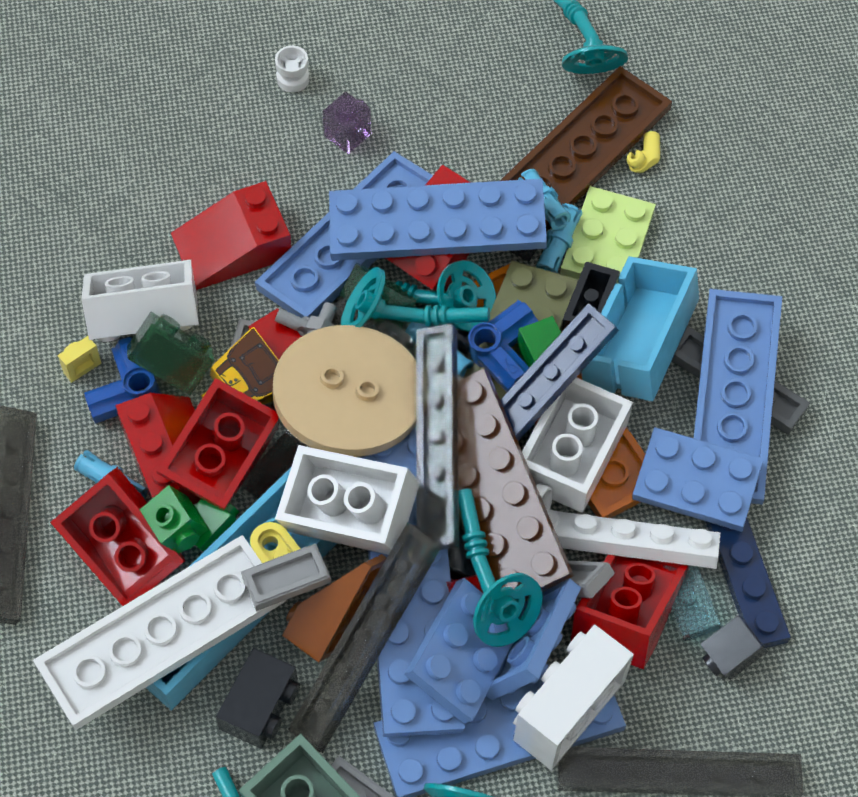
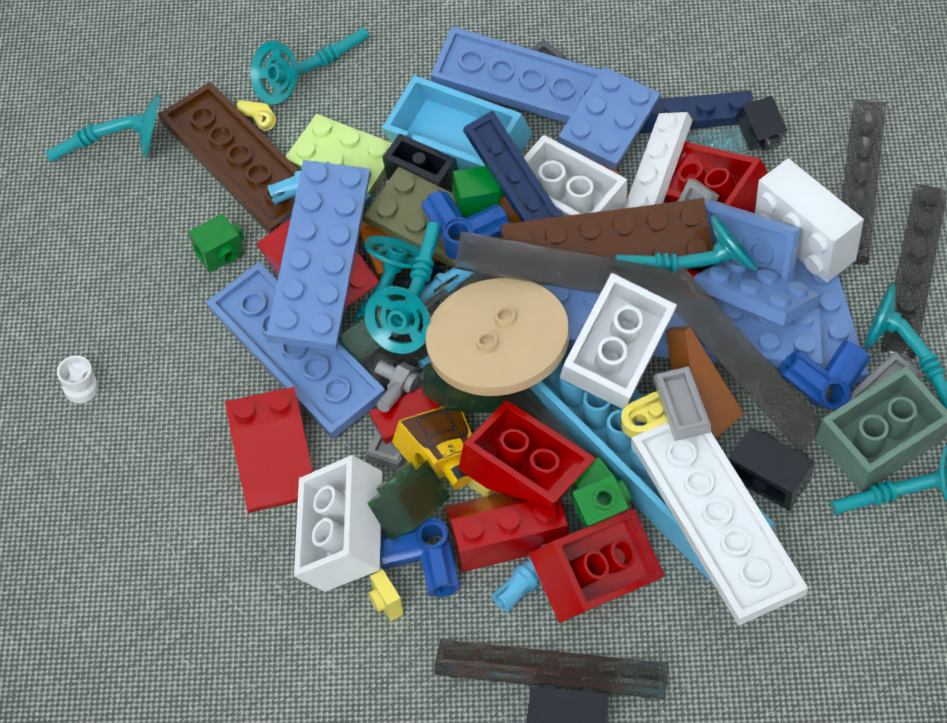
camera: 75 degrees left, 5 degrees down
(347, 122) = (161, 336): clear purple brick -> none
(364, 731) = (814, 380): none -> blue piece
(468, 147) = (217, 242): none -> green brick
(699, 162) = (282, 72): none -> teal dish

